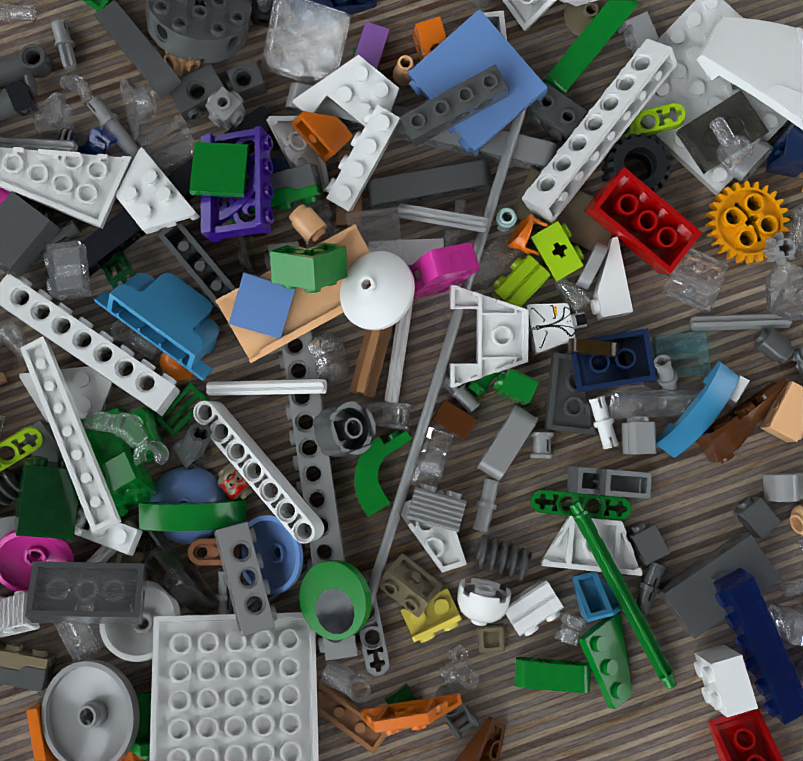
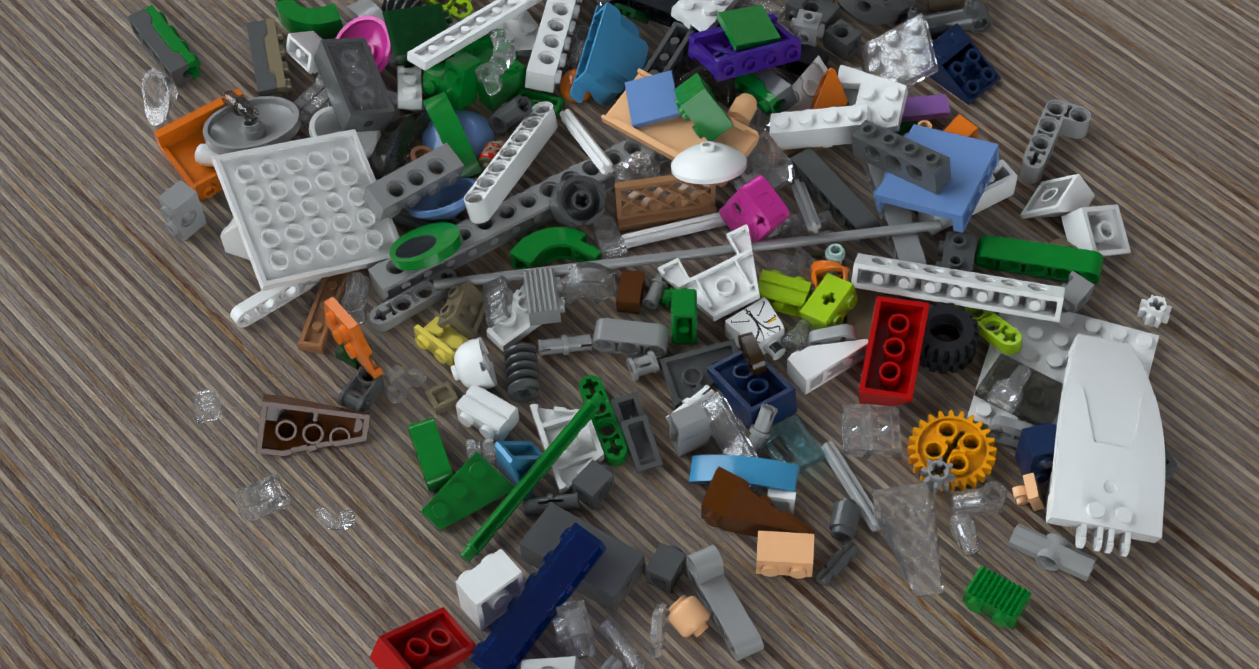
camera: 75 degrees right, 30 degrees down
(59, 720) = (240, 106): none -> clear smoke pin
(402, 549) = (497, 300): none -> clear slope

